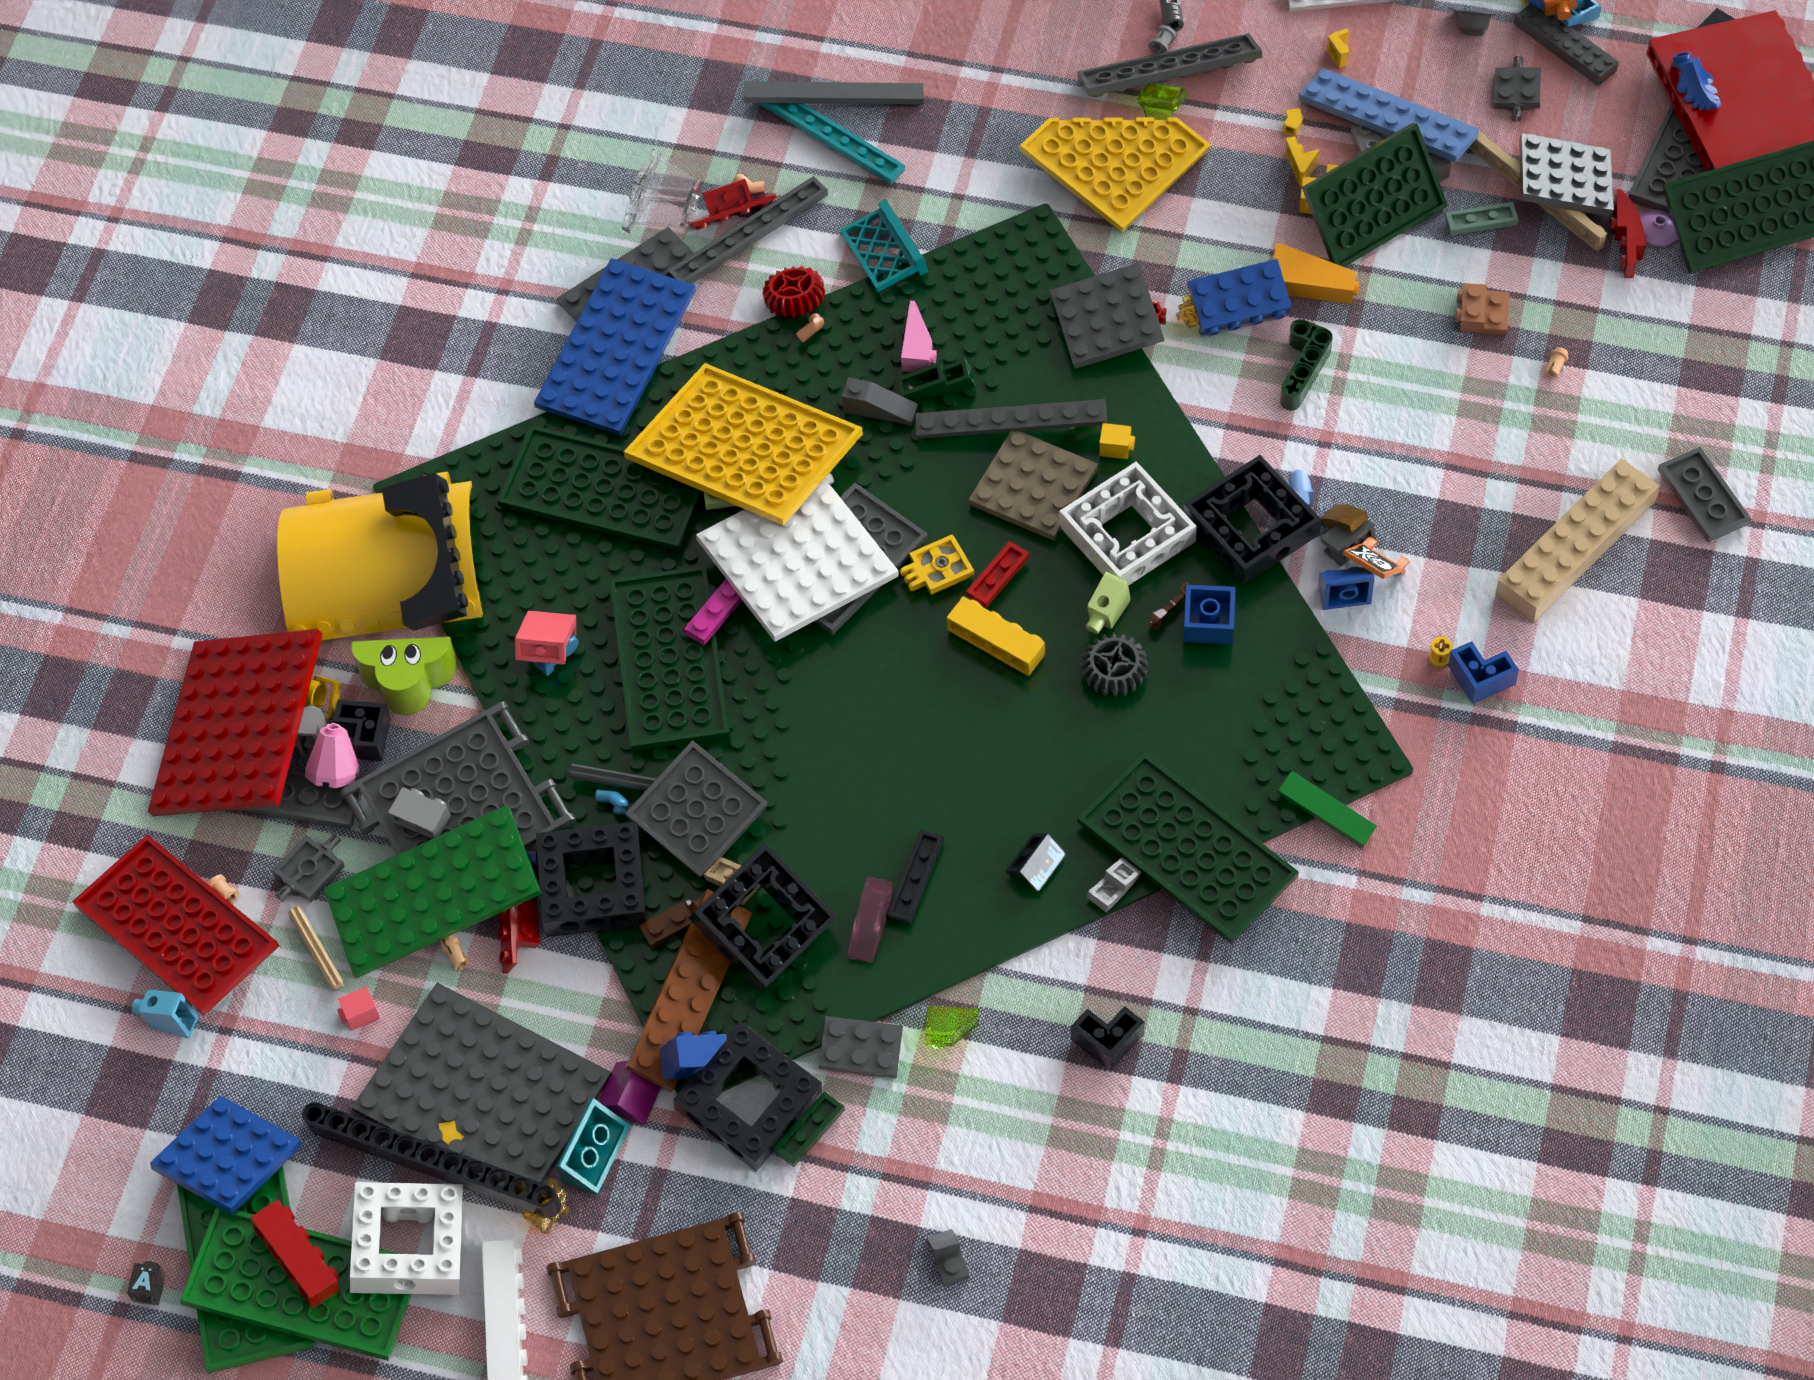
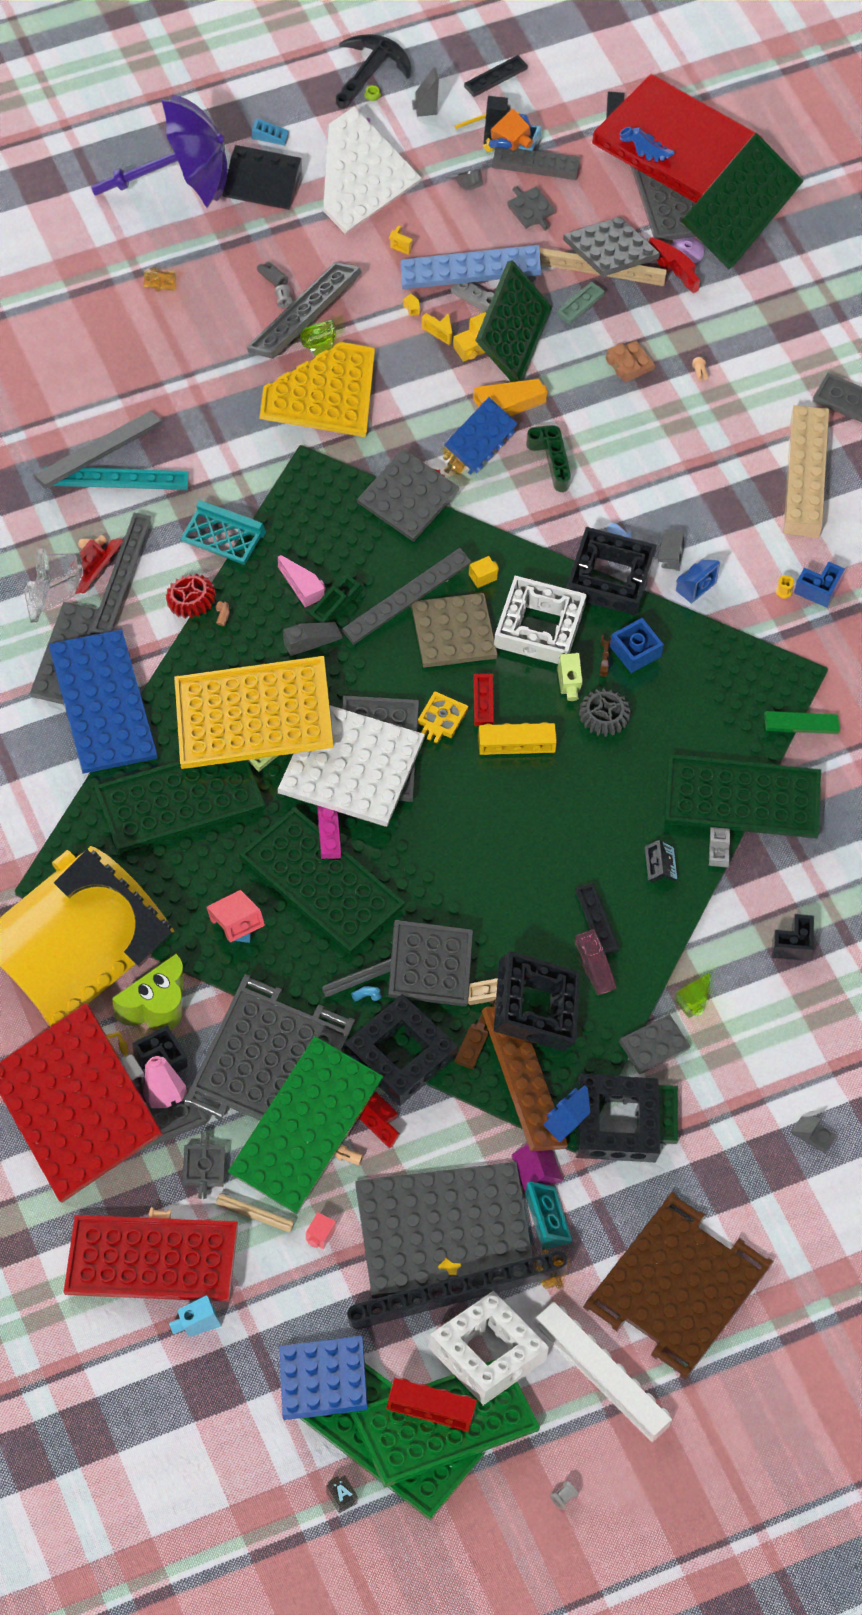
camera: 45 degrees left, 0 degrees up
(419, 813) = (255, 1079): light grey brick -> none
(1344, 516) = (662, 536): pearl gold slope -> none
(1375, 562) = (704, 553): flag -> none

